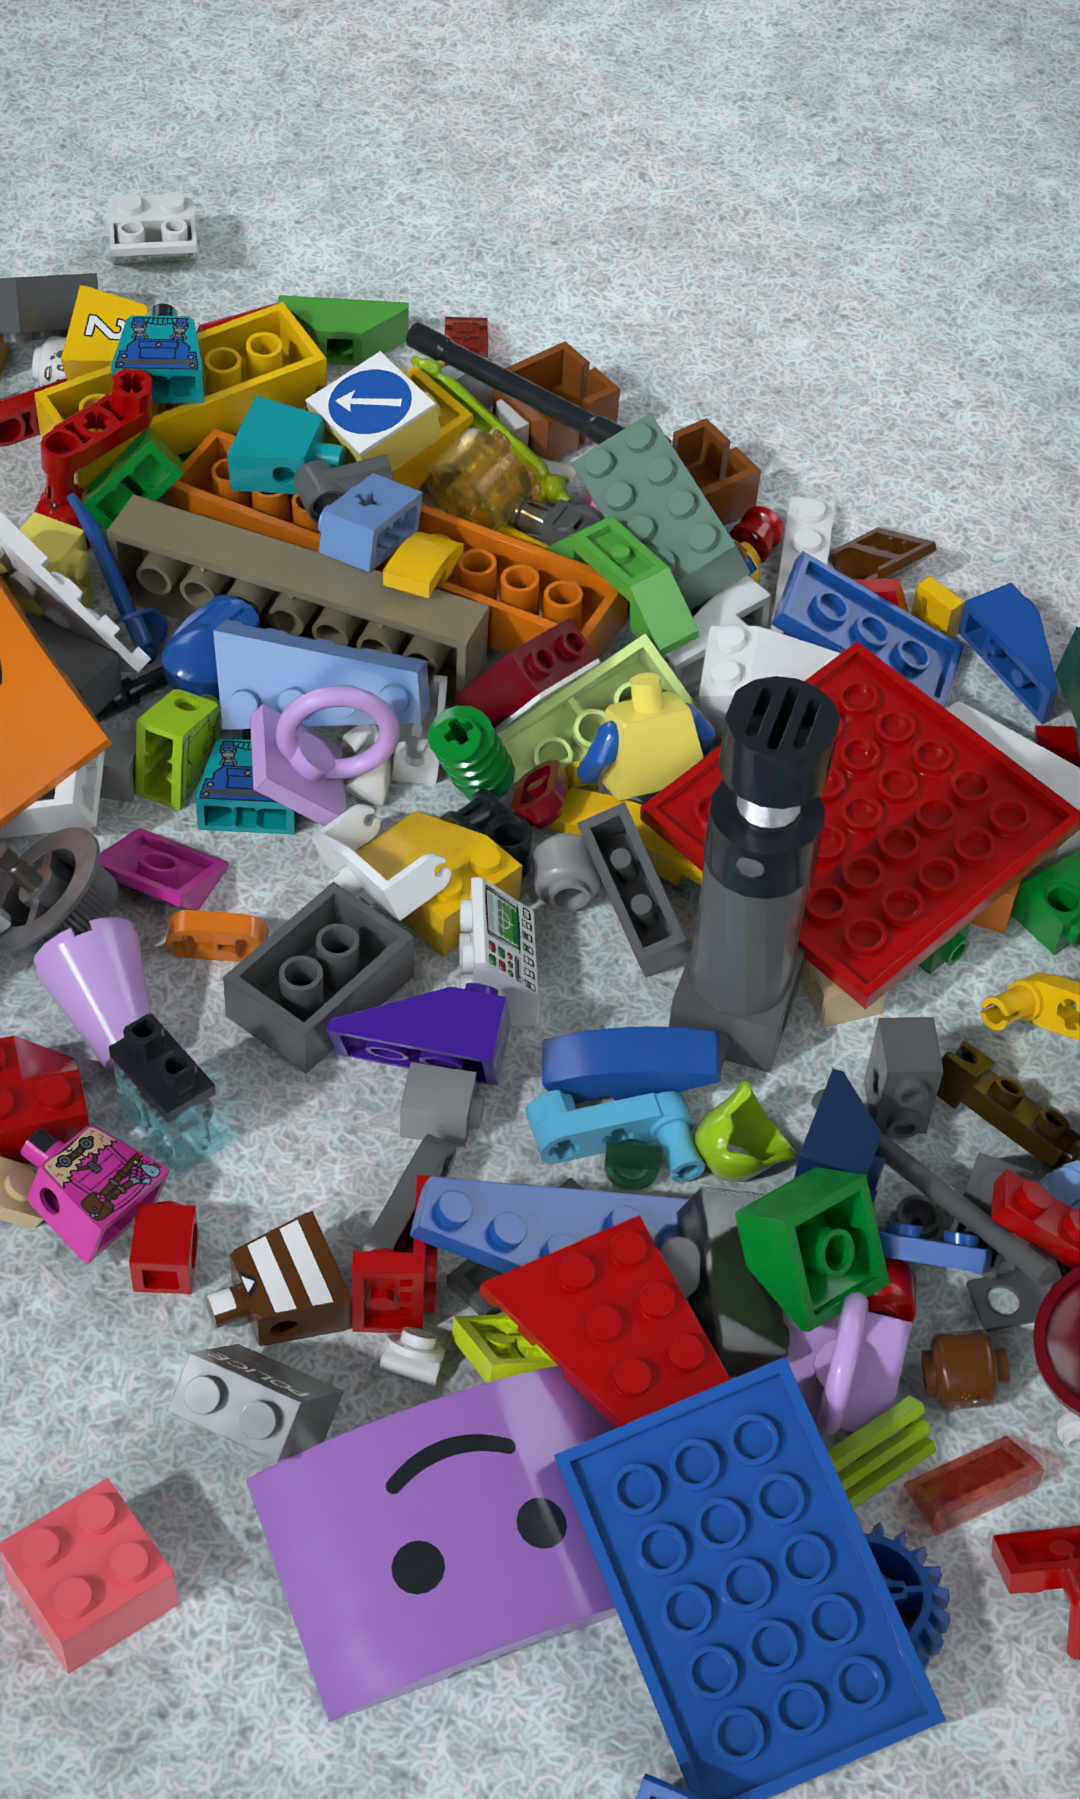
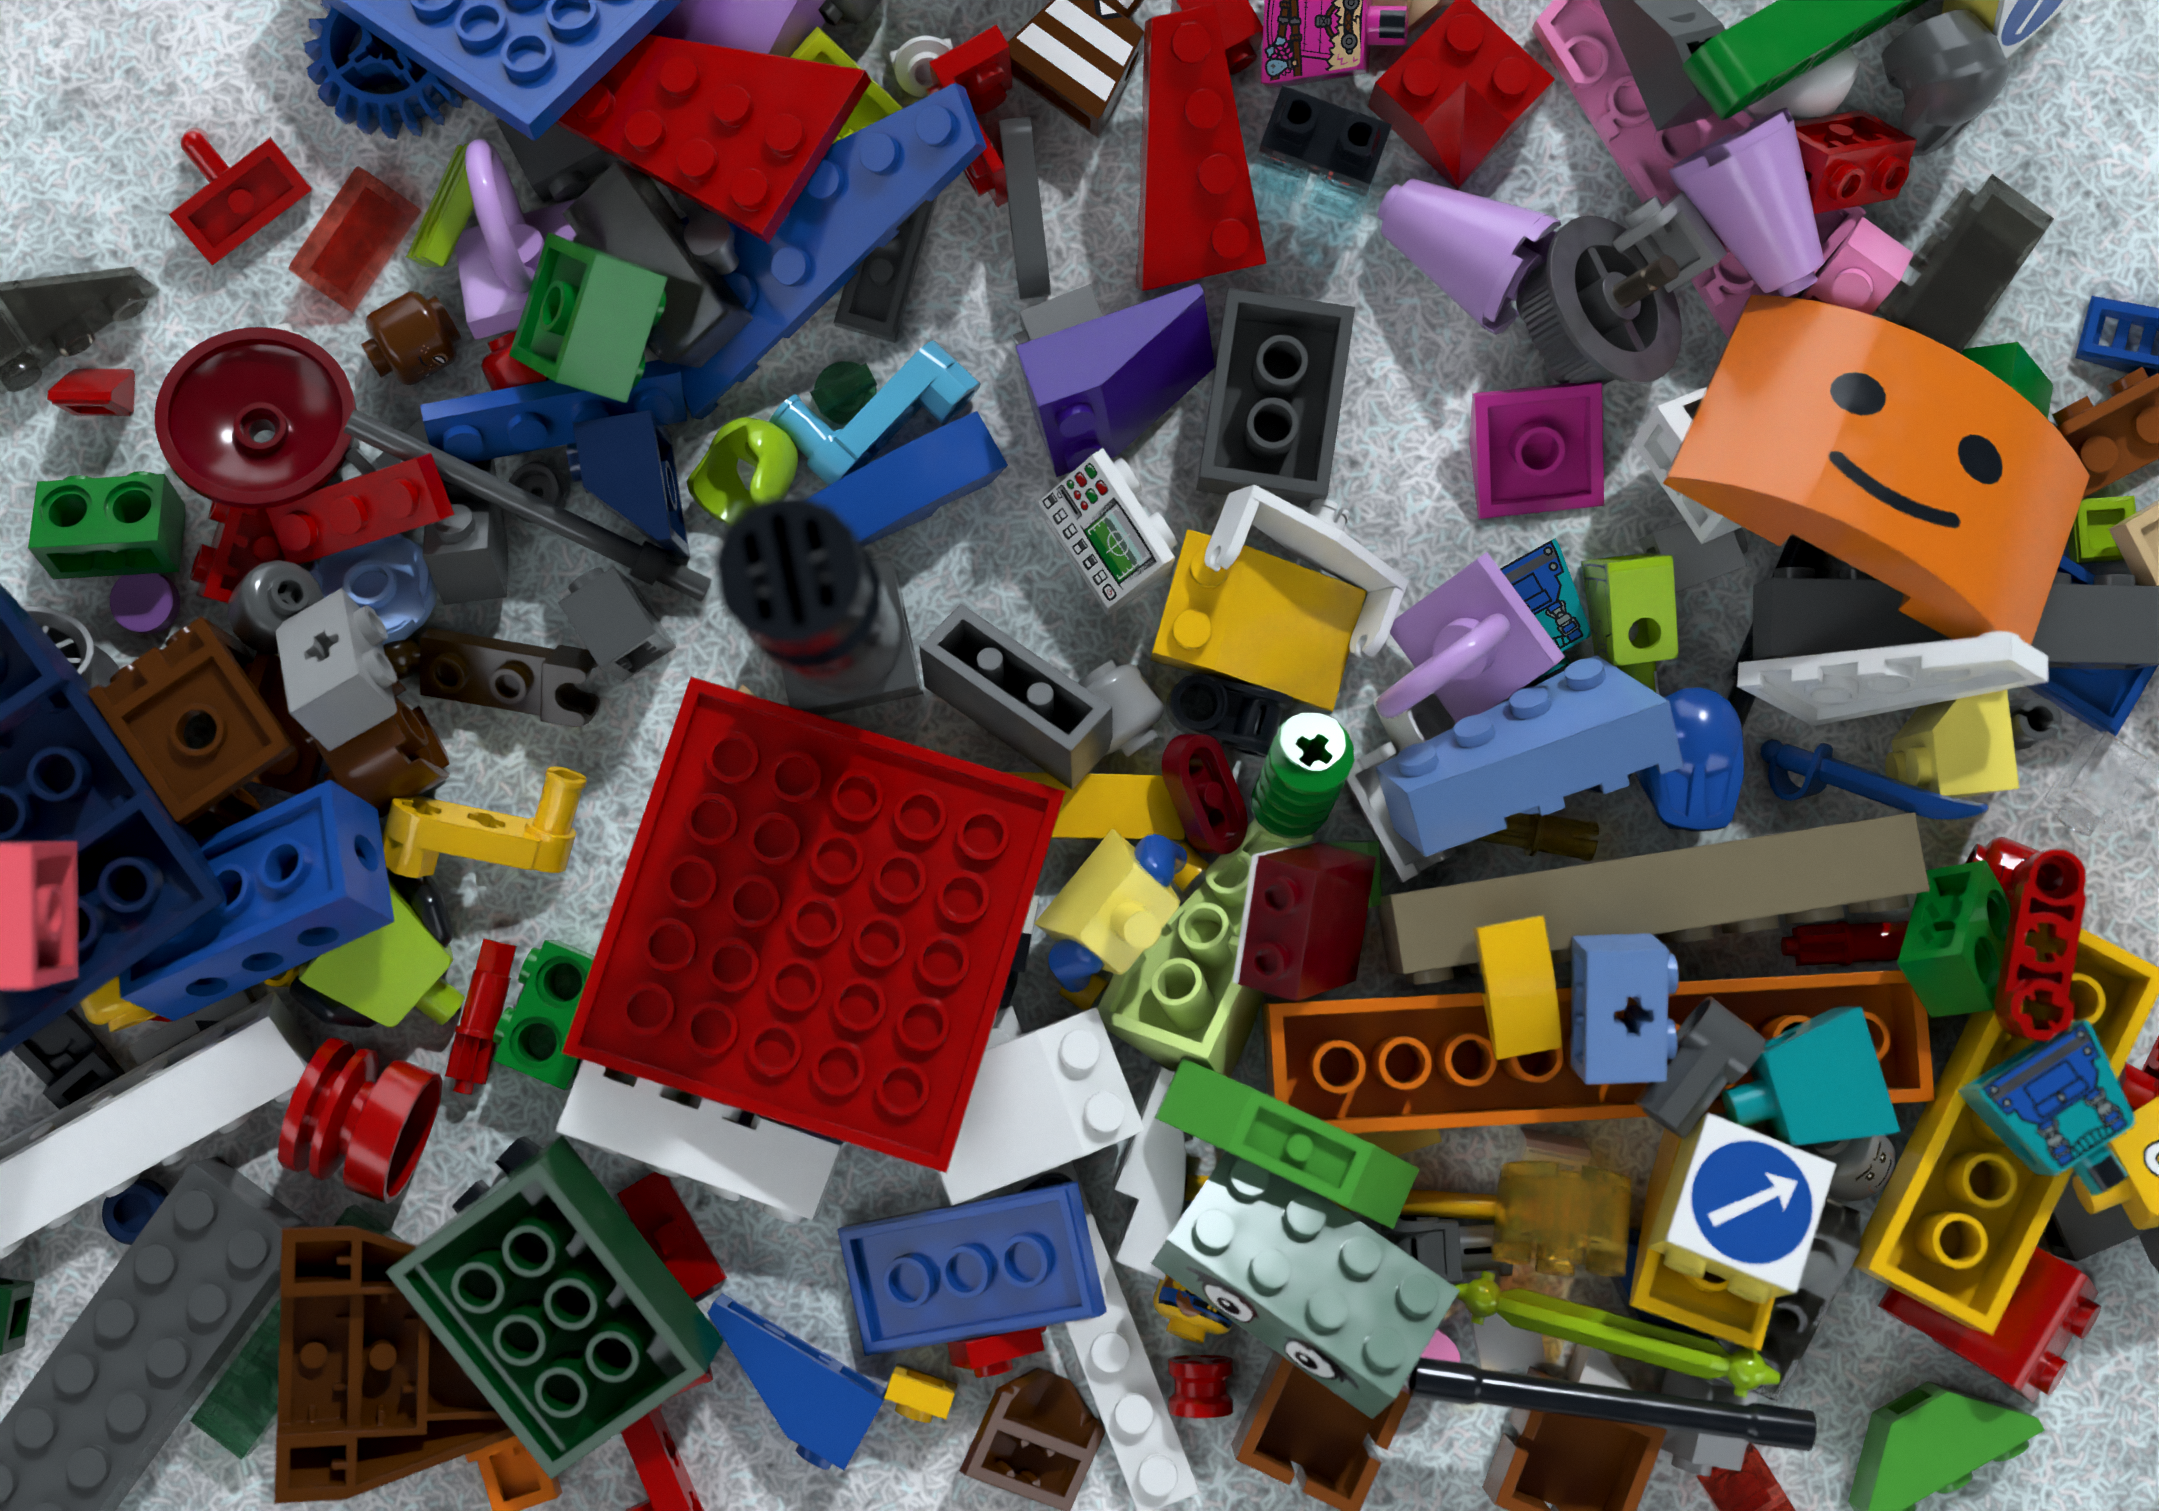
camera: 155 degrees right, 35 degrees up
(214, 935) = (1418, 402): orange beam -> none
(262, 1141) = (1194, 169): none -> red wedge

